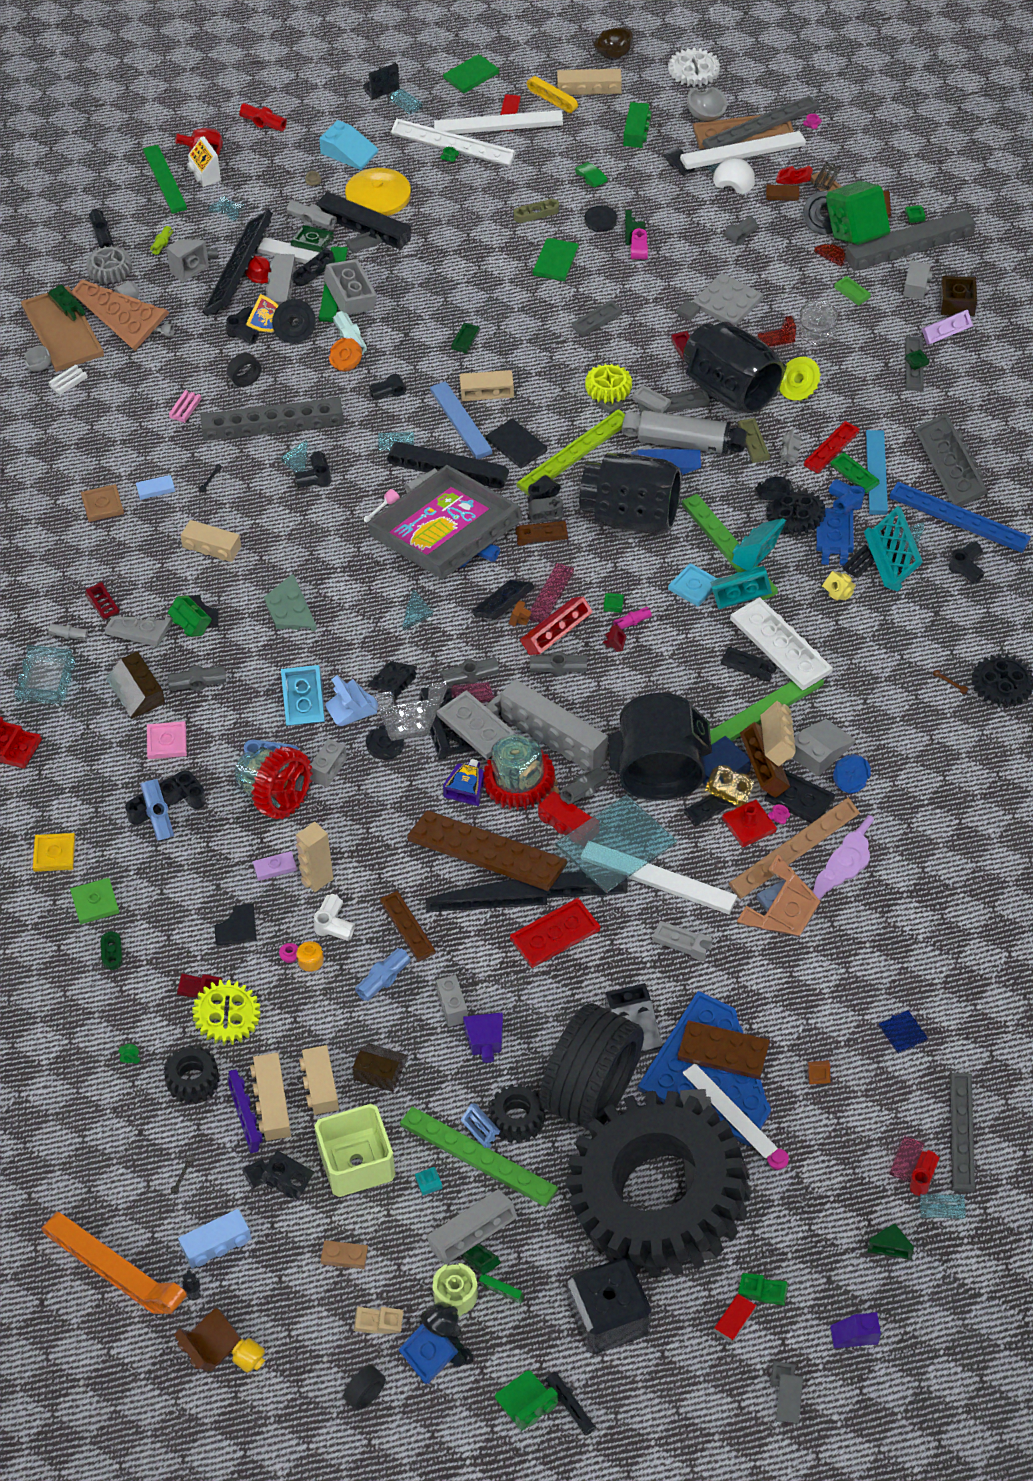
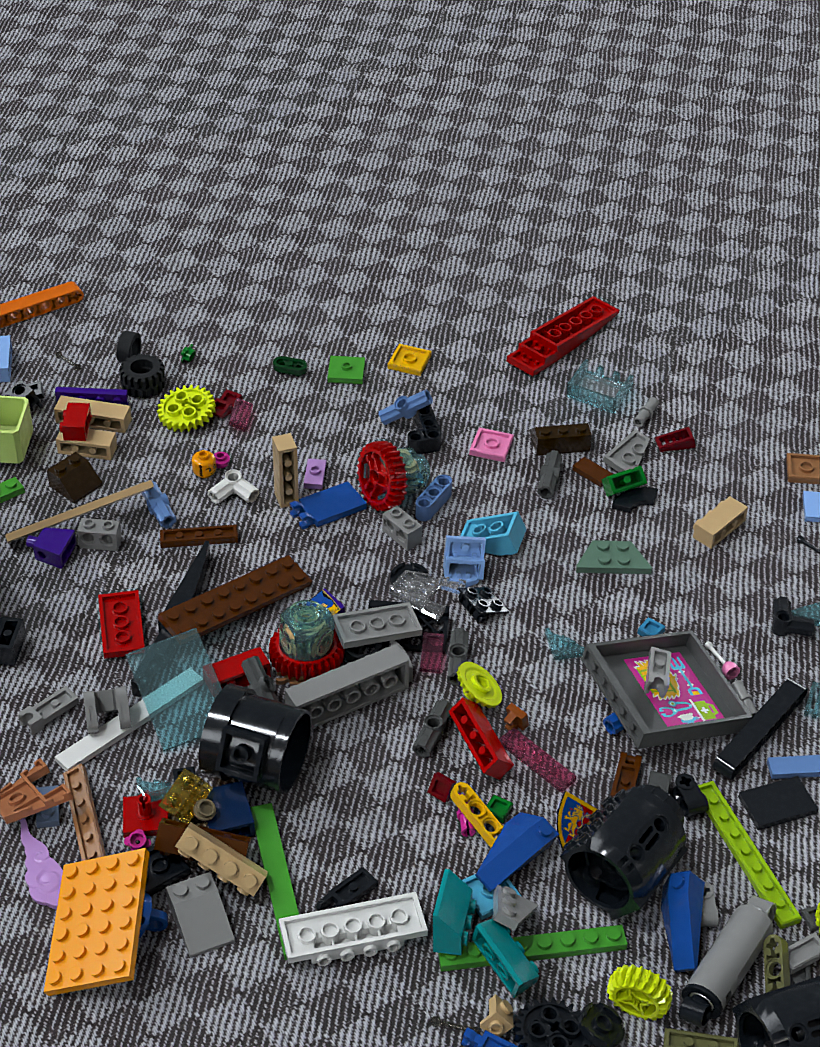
camera: 110 degrees right, 10 degrees down
(150, 1106) = (128, 345): none -> black tyre
(175, 651) = (591, 471): none -> reddish brown tile
(212, 963) = (240, 414): none -> clear pink tile
(238, 927) = (262, 436): black tile -> none
(311, 1082) = (76, 421): none -> red brick
(336, 836) = (328, 505): none -> blue tile
(366, 559) = (651, 627): none -> dark azure tile
(435, 1026) = (79, 511): none -> tan tile
(443, 517) = (658, 671): none -> light grey plate
(500, 644) = (479, 685): none -> neon yellow gear
(502, 599) = (539, 708): black tile -> none
(601, 554) = (571, 816): none -> shield
(637, 600) = (477, 821): none -> yellow beam
(647, 567) = (516, 846): none -> blue wedge
(656, 895) = (104, 702): none -> light grey piece
(681, 402) = (770, 960): none -> olive beam
(714, 552) = (511, 908): none -> light grey wing
(725, 820) = (156, 789): none -> clear light blue tile
(737, 764) = (204, 809): none -> dark tan plate
(741, 469) = (639, 992): none -> neon yellow gear
(797, 541) = (499, 1018): none -> tan bracket
(820, 581) = (436, 1022): none -> clear smoke hinge
(839, 585) = (409, 1025): light yellow brick -> none
(874, 791) = (97, 922): none -> light orange plate

